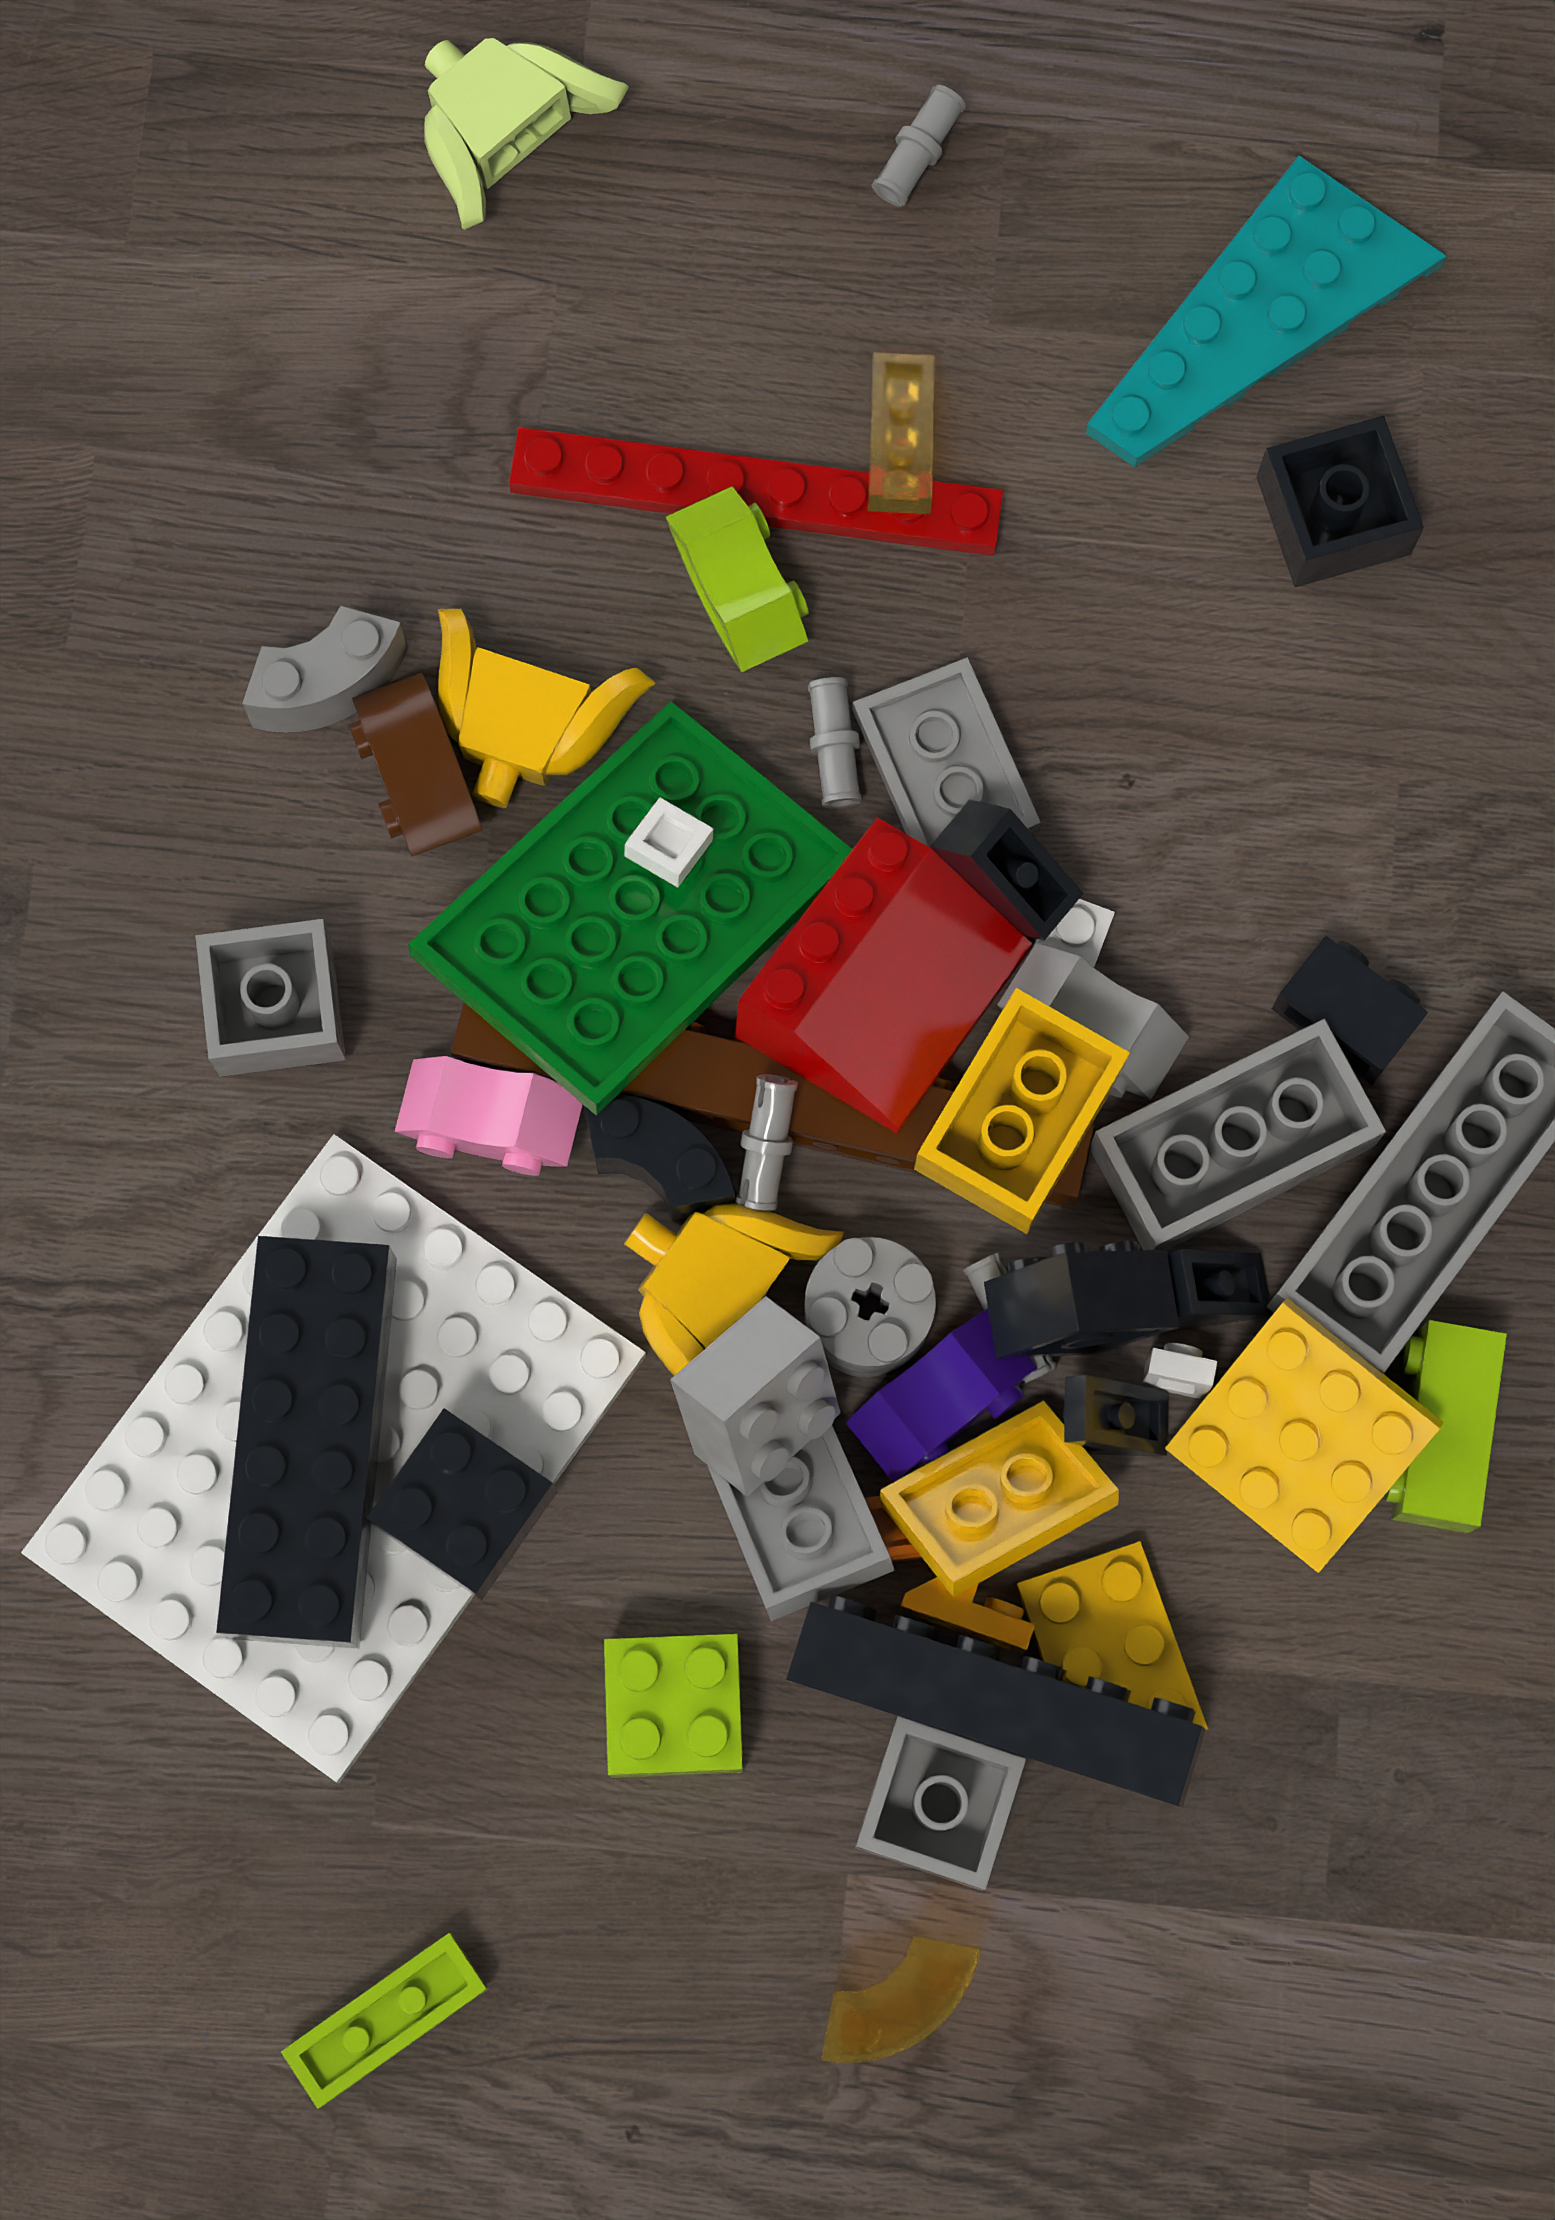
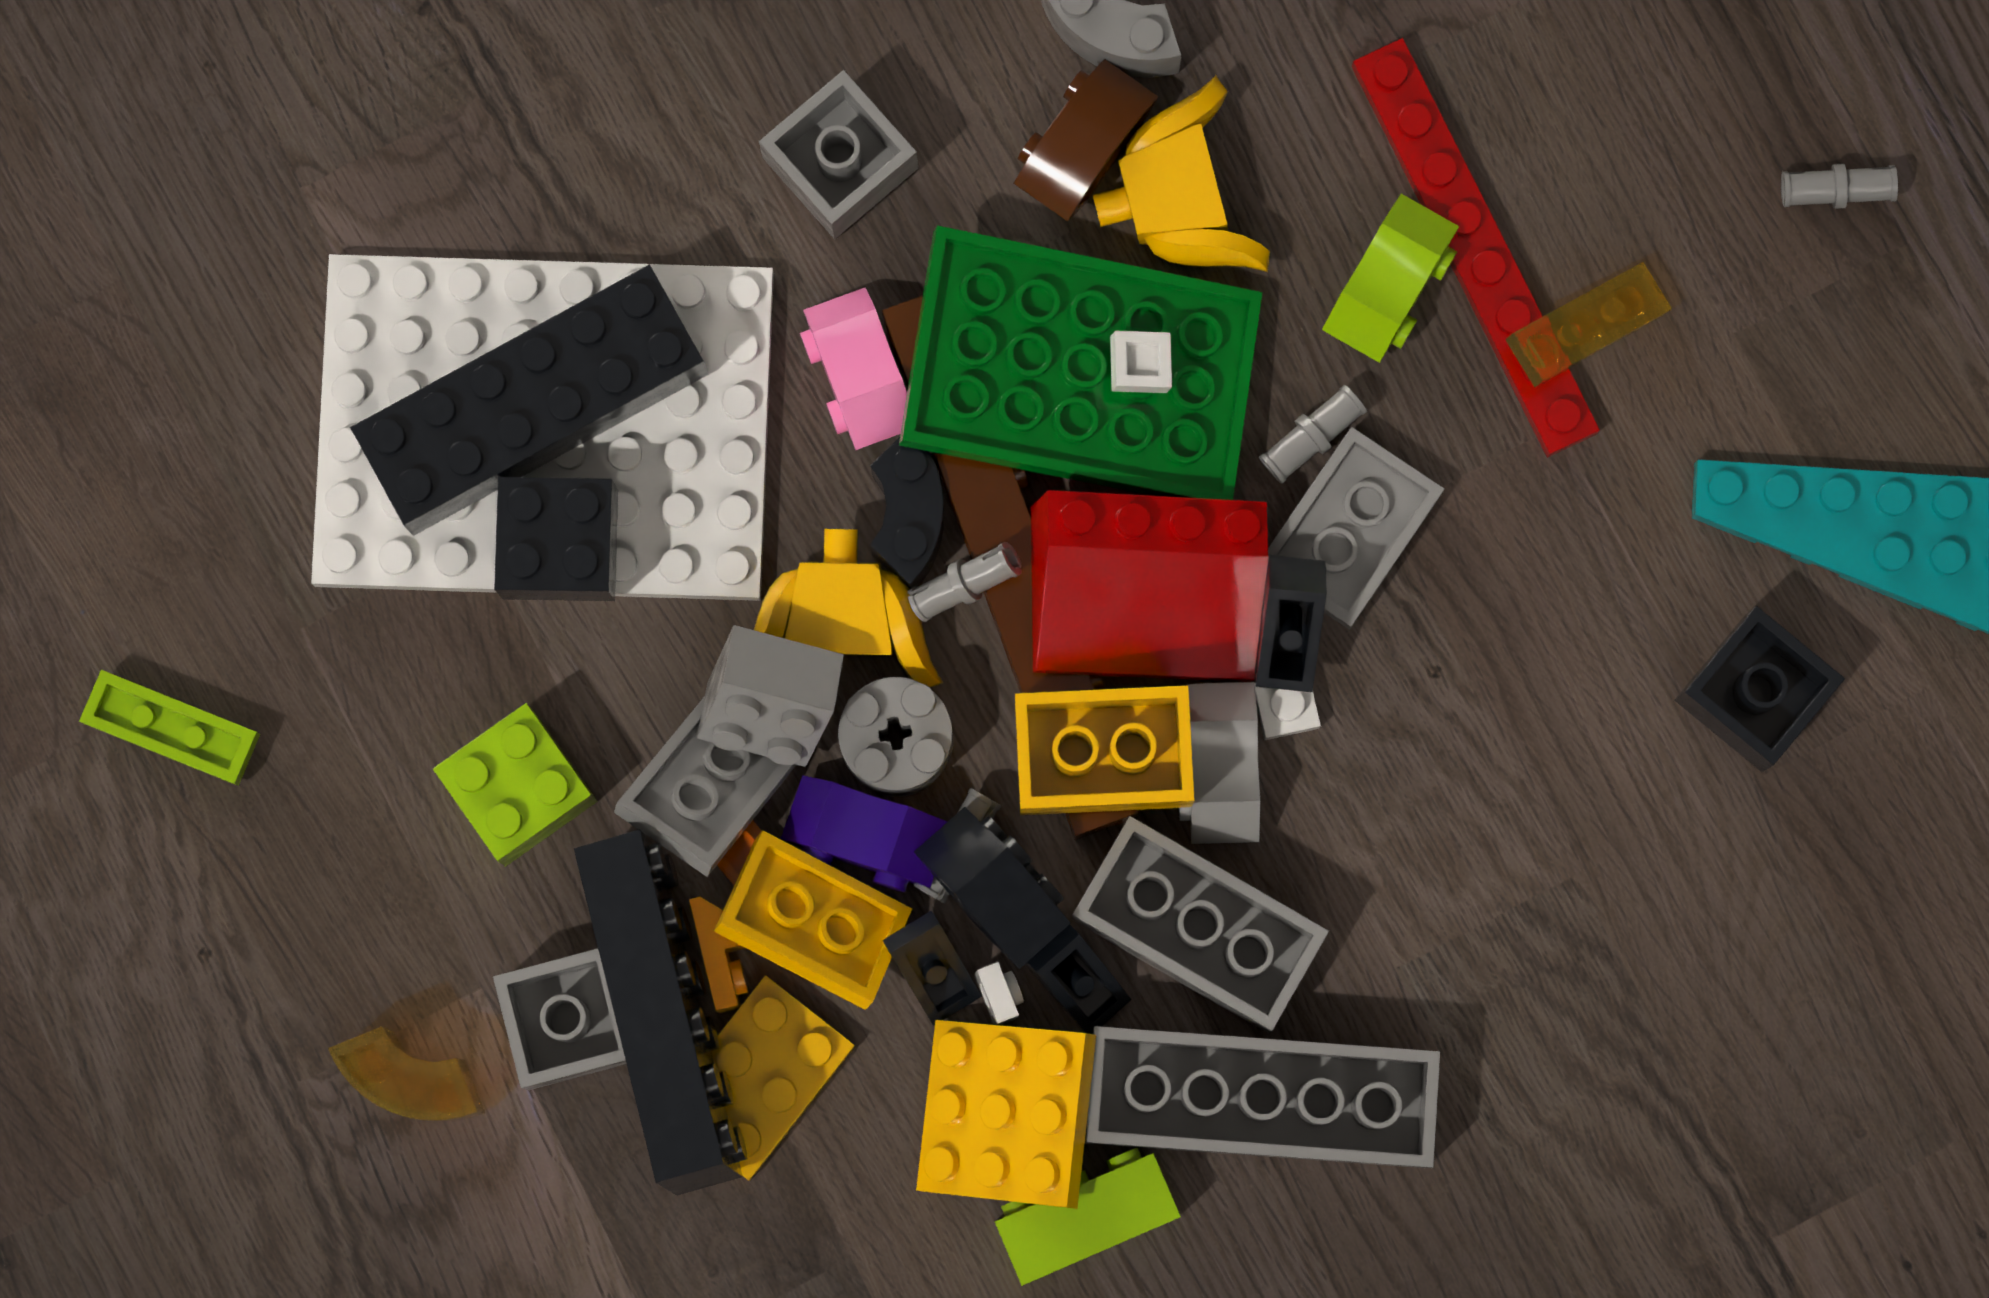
camera: 60 degrees right, 5 degrees up
(1360, 1007) = (1362, 948): black brick -> none

